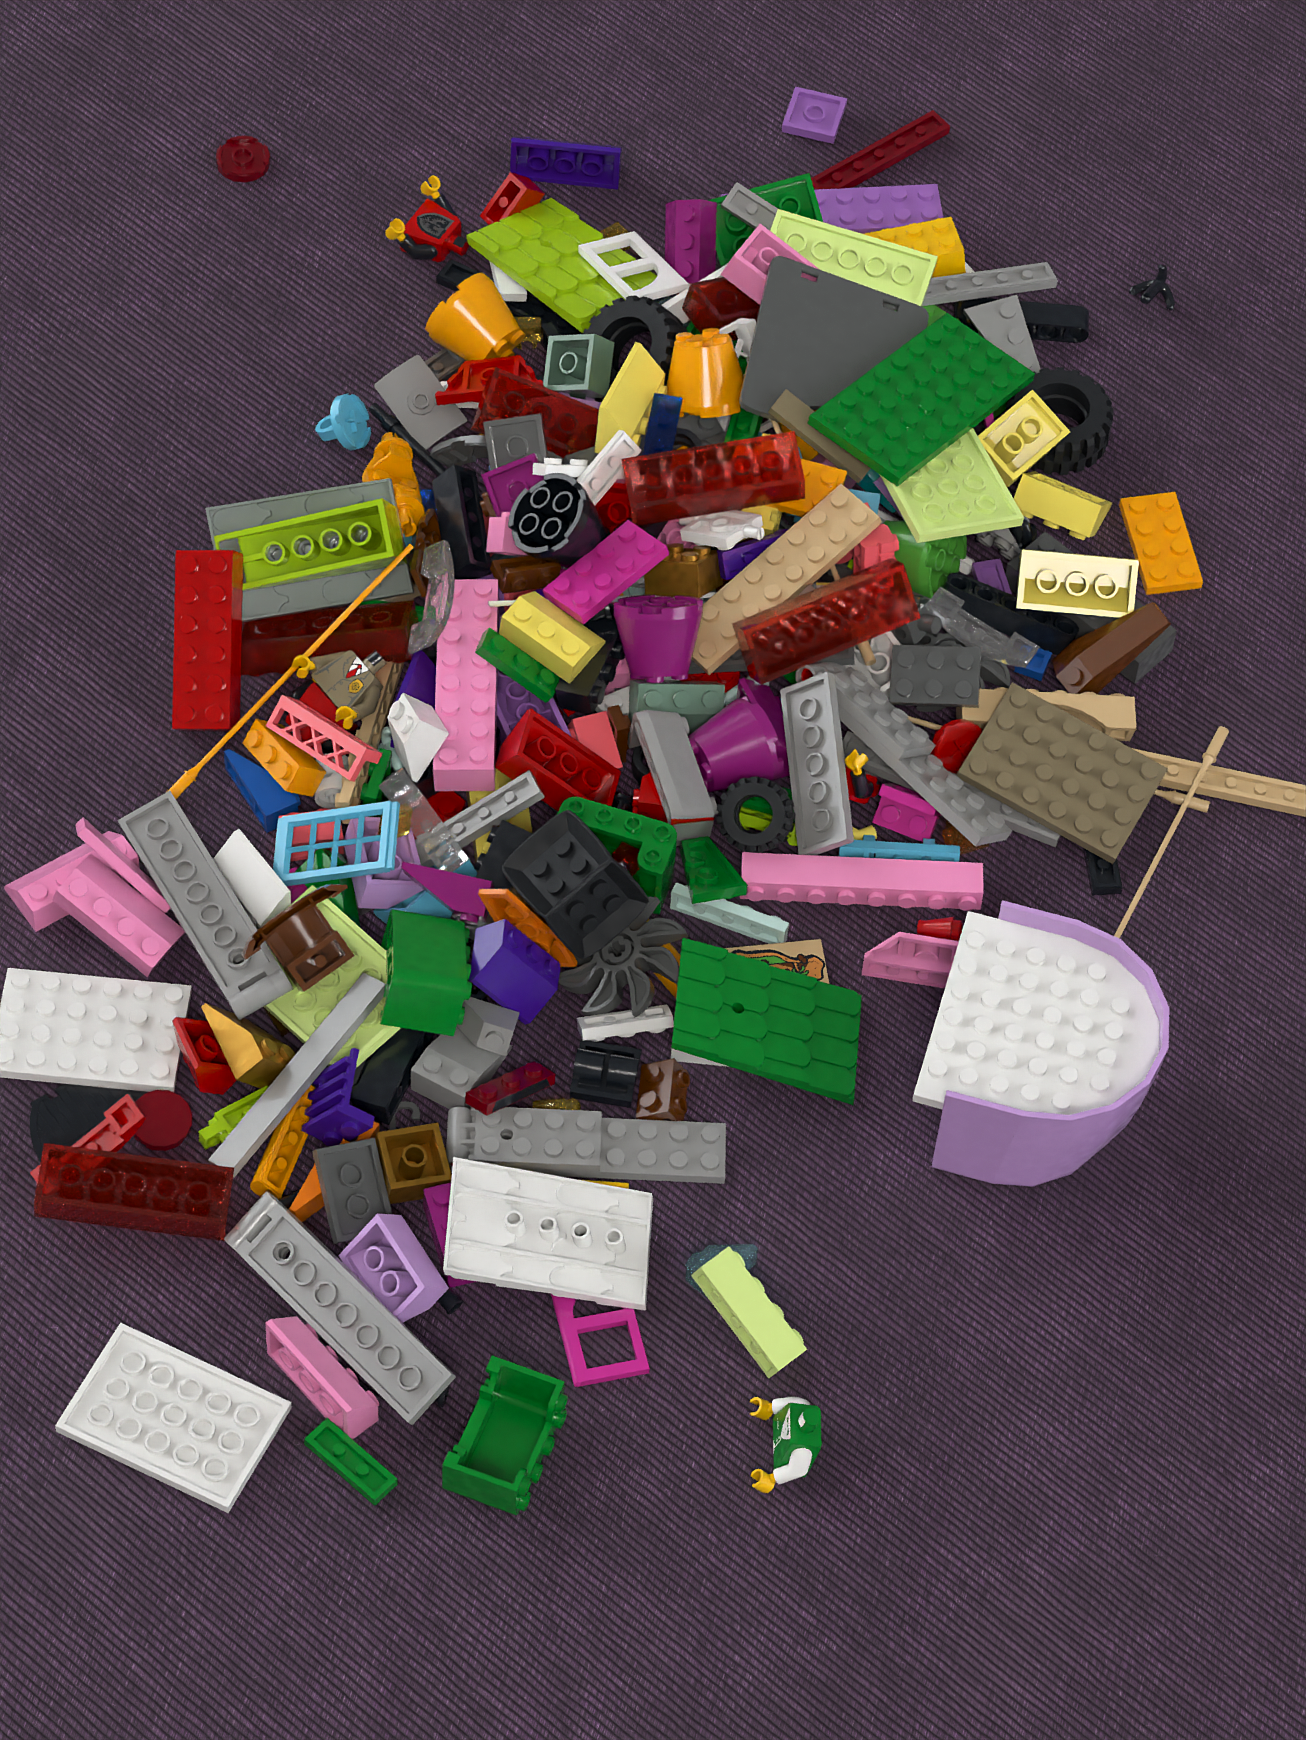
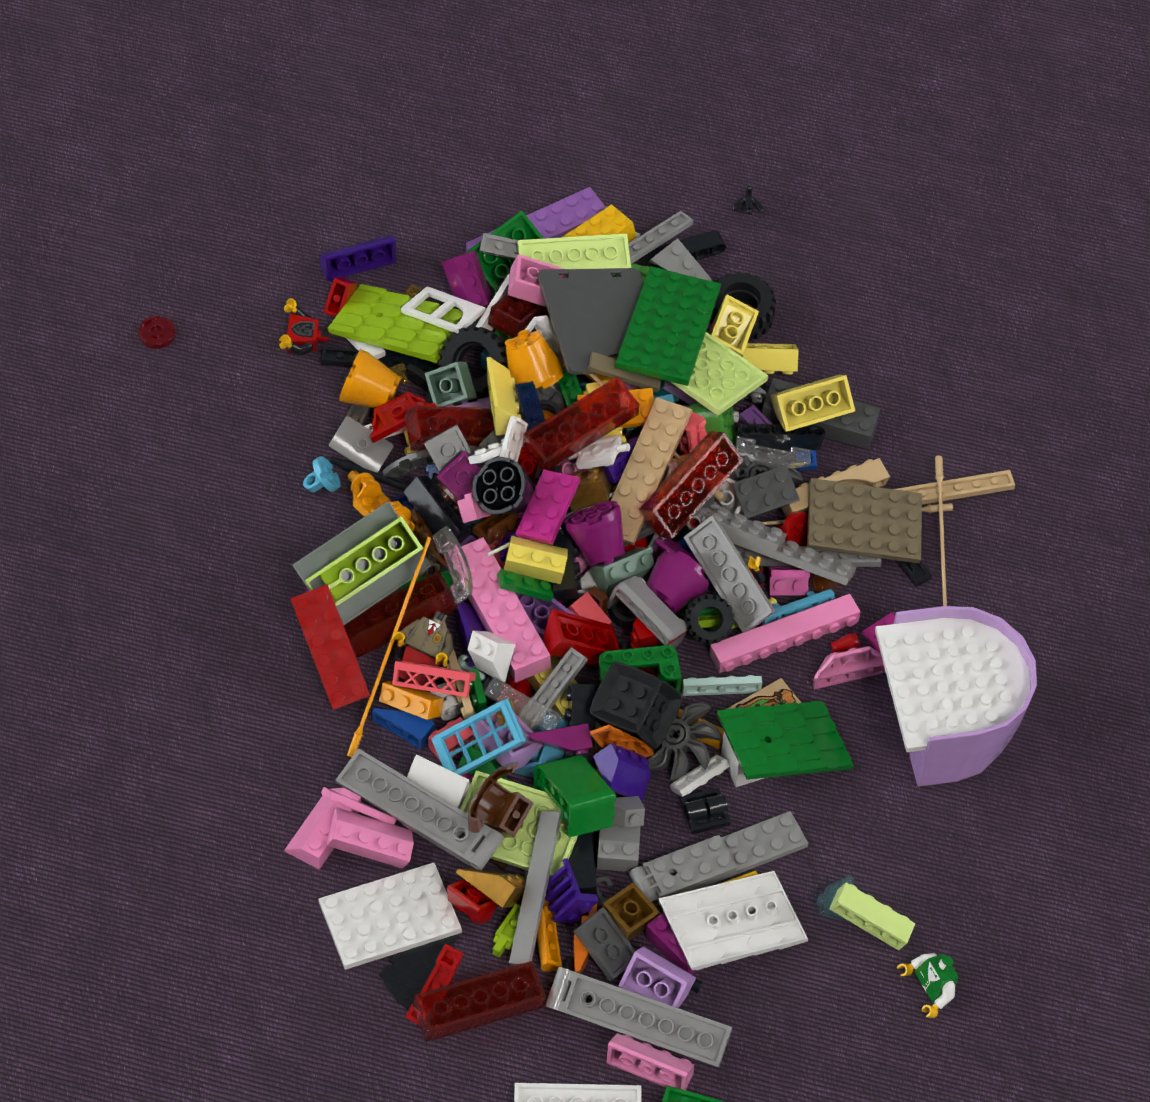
camera: 25 degrees left, 0 degrees up
(166, 1120) = (471, 947): dark red tile -> none
(506, 1437) = (776, 1050): green windscreen -> none
(510, 1088) = (659, 843): dark red plate -> none
(562, 1104) = (688, 842): clear yellow arm -> none
(571, 1327) = (772, 973): dark pink window -> none
(662, 1091) = (744, 807): reddish brown bracket -> none
(709, 872) = (699, 665): green wing -> none
(814, 115) = (488, 170): medium lavender plate -> none
(883, 153) = (542, 179): dark red plate -> none
(1103, 653) = (847, 438): reddish brown wedge -> none
(1160, 543) = (836, 356): light orange plate -> none

